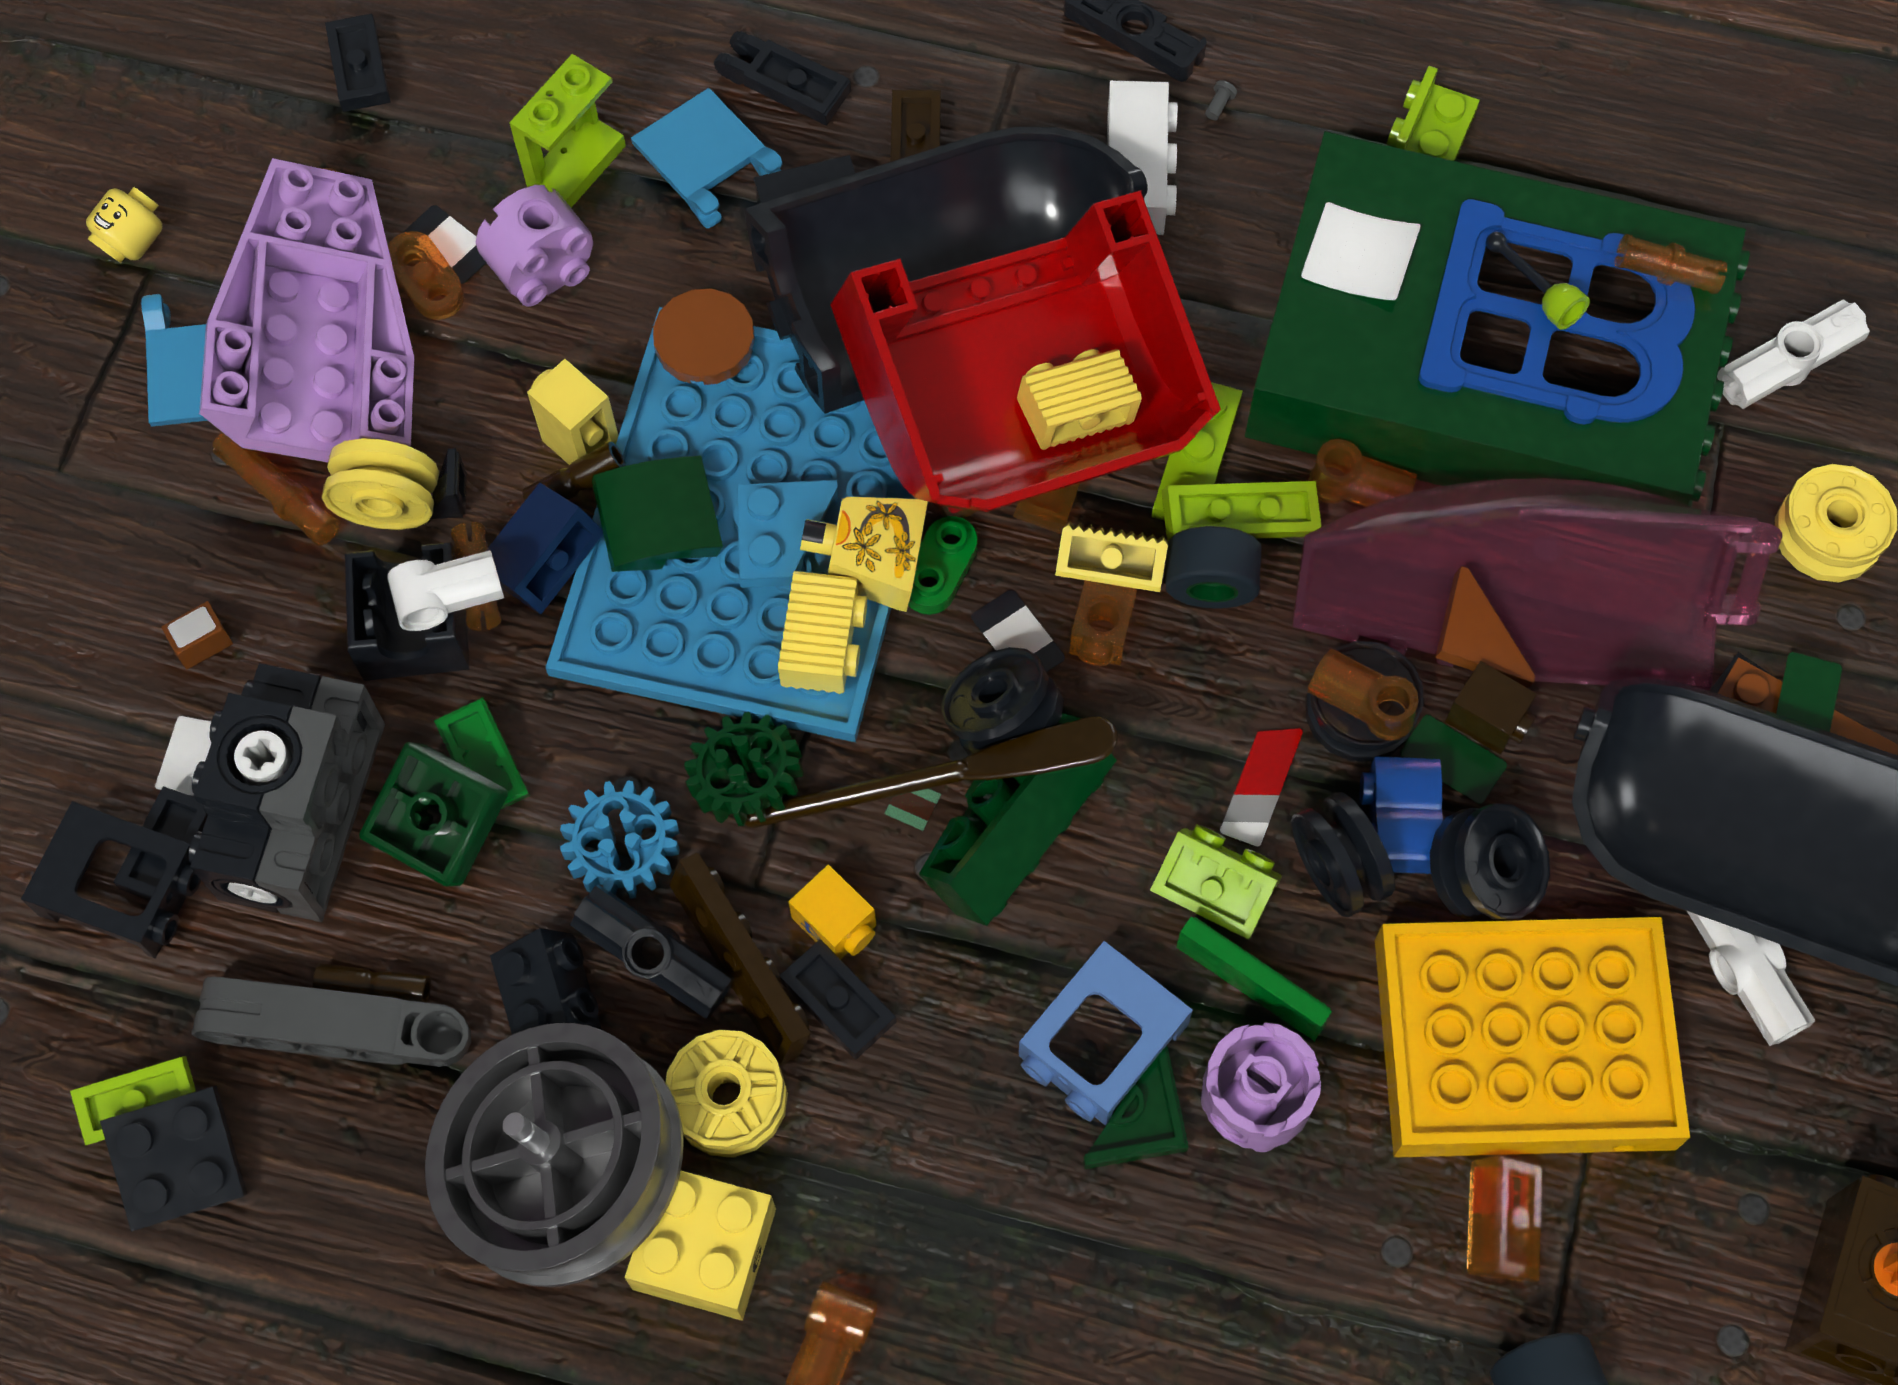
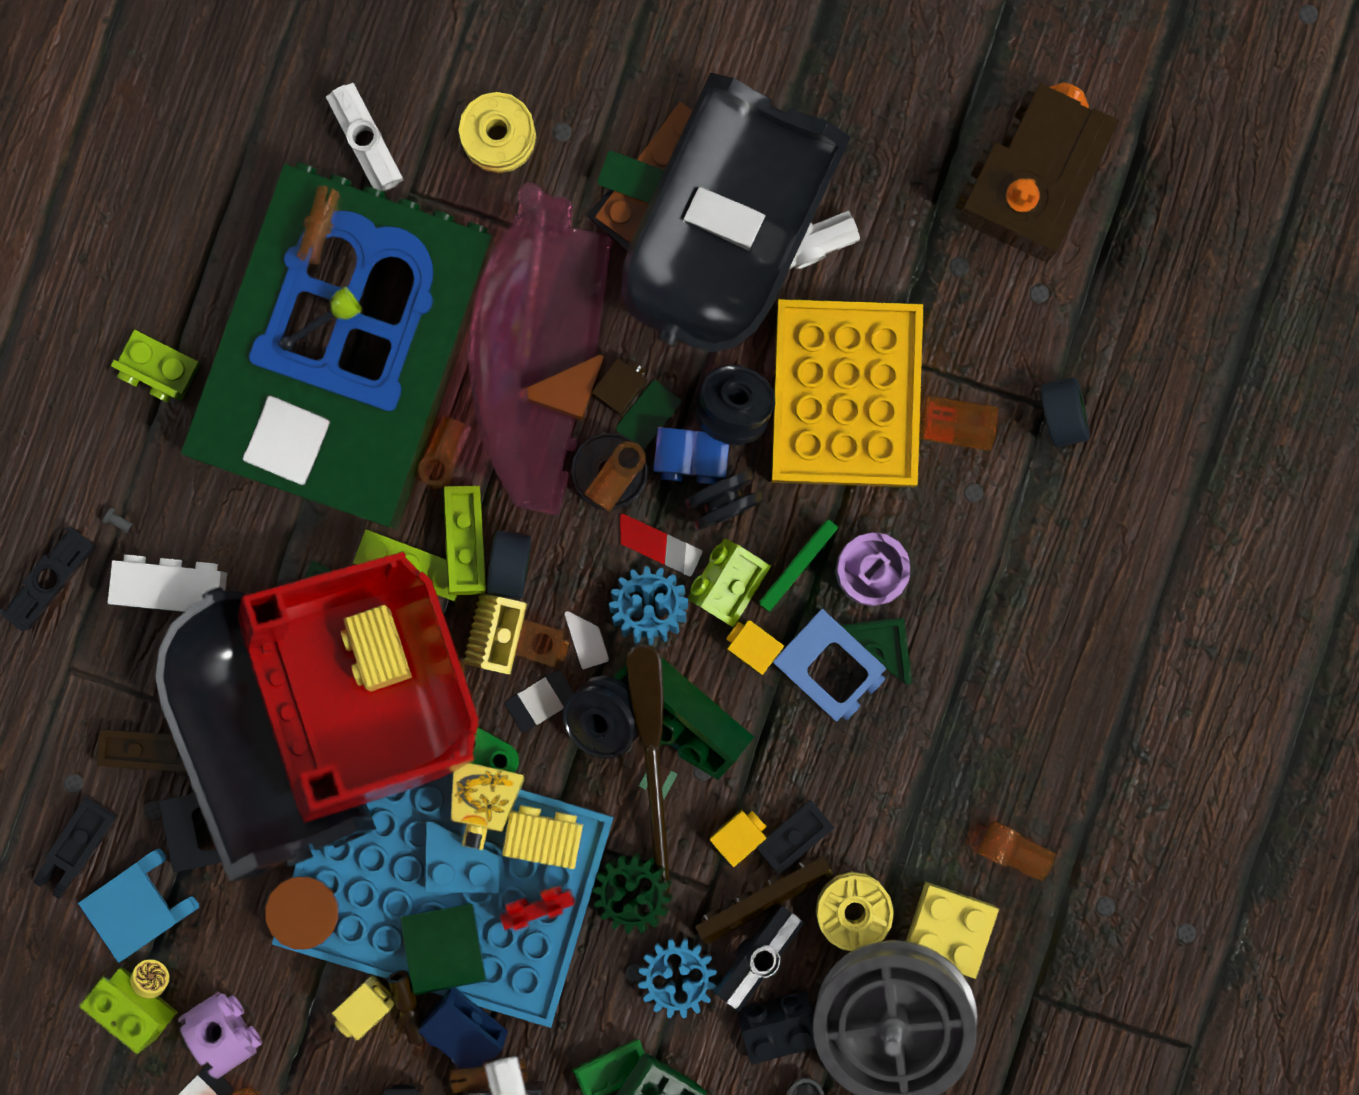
camera: 85 degrees left, 20 degrees up
(609, 169) = (149, 979): none -> tile
(725, 638) = (551, 904): none -> red plate
(1110, 693) = (587, 641): none -> white sticker
(1124, 917) = (753, 646): none -> yellow brick
(1175, 793) = (648, 584): none -> dark azure gear
(1772, 830) = (724, 218): none -> white slope

